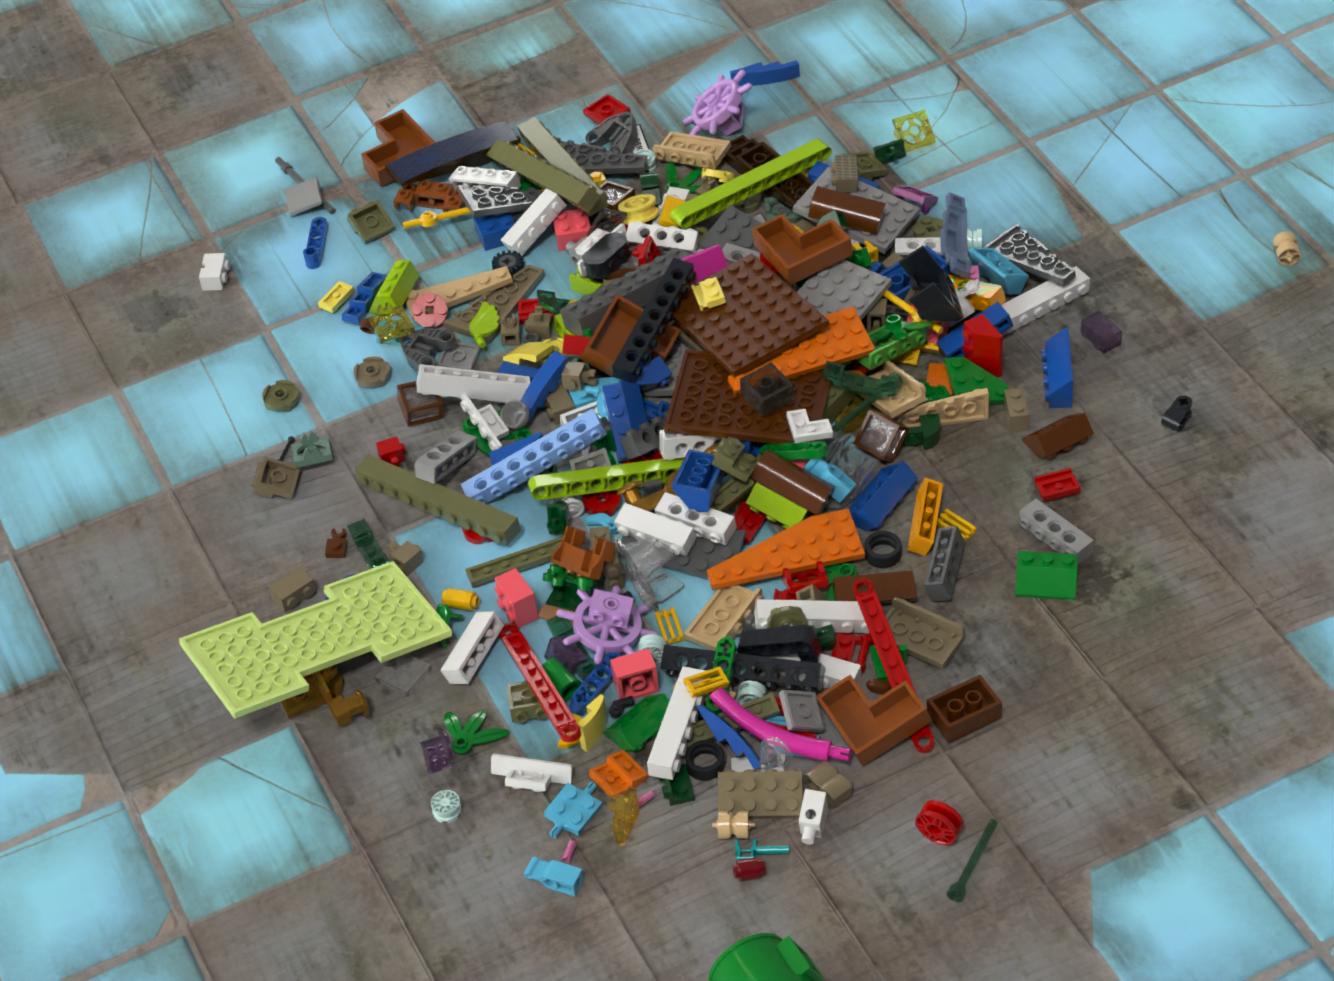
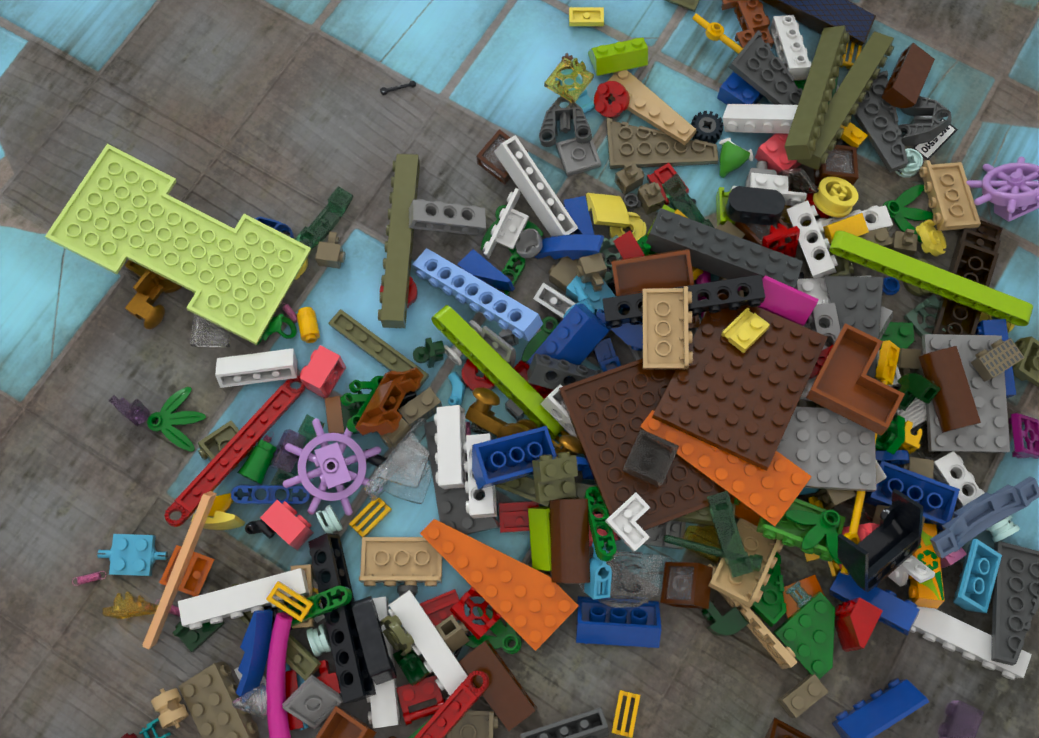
camera: 55 degrees right, 25 degrees up
(275, 478) = (359, 100): dark tan plate -> none
(285, 403) = (452, 55): olive plate -> none
(292, 589) = (251, 188): dark tan brick -> none
(311, 454) = (408, 118): sand green piece -> none
(337, 545) = (318, 191): reddish brown plate -> none
(362, 301) = (594, 38): blue slope -> none
(367, 379) = (519, 89): dark tan plate -> none
(391, 451) = (436, 170): red brick -> none
(443, 800) = (87, 449): light aqua wheel -> none
(484, 323) = (622, 152): lime animal -> none
(530, 773) = (146, 497): white bracket -> none
(548, 258) = (732, 157): none -> bright green hat
(555, 875) = (54, 582): medium azure piece -> none
(573, 125) = (908, 77): none -> reddish brown brick
(604, 108) = (952, 91): red plate -> none
(619, 756) = (179, 569): none -> light nougat tile
(639, 723) = (246, 556): green slope -> none
(650, 185) = (876, 187): dark green brick -> none
(671, 331) = (666, 328): none -> tan bracket
(704, 747) = (217, 635): black tyre -> none
(885, 560) = (571, 657): black tyre -> none
(925, 517) = (613, 683): light orange brick -> none
(927, 224) = (997, 465): olive plate -> none
(936, 374) = (792, 592): none -> clear light blue bush

